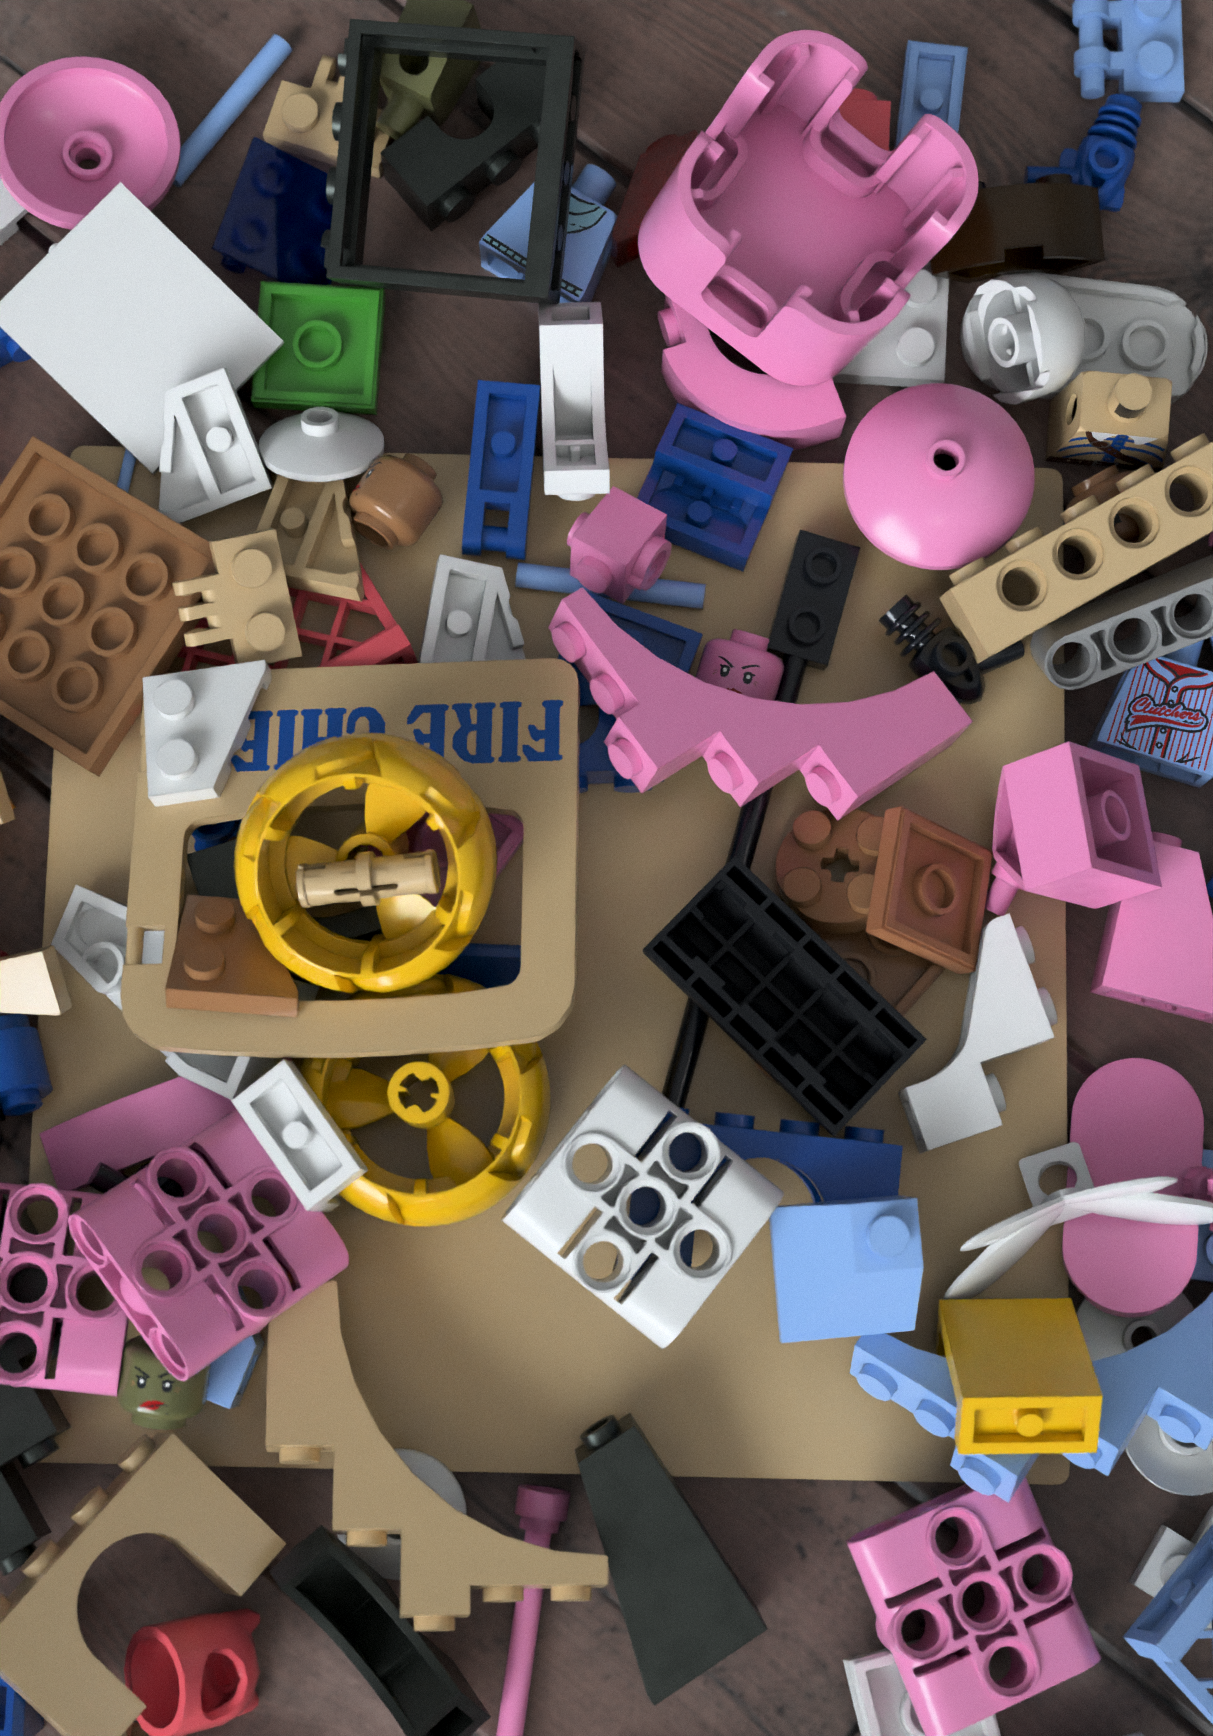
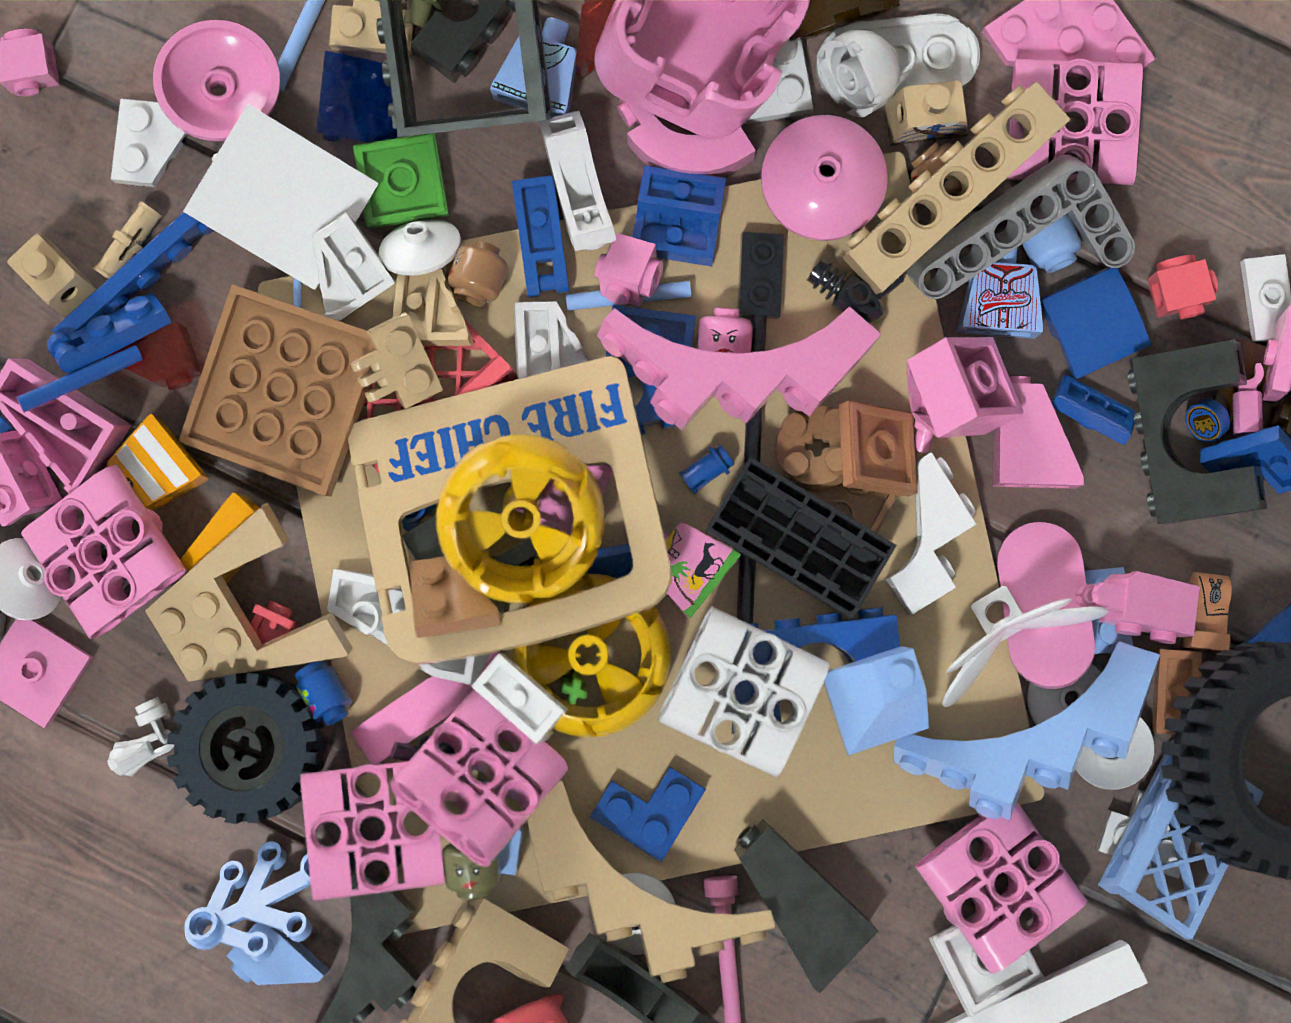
camera: 10 degrees left, 5 degrees up
(196, 727) = (388, 453): white wing -> none
(368, 878) = (525, 529): tan pin -> none
(388, 1141) = (573, 687): none -> bright green axle
(454, 1380) = (653, 823): none -> blue plate
(615, 1004) = (696, 566): none -> torso
(667, 864) = (707, 468): none -> blue pin
(1019, 1376) = (999, 741): yellow panel -> none

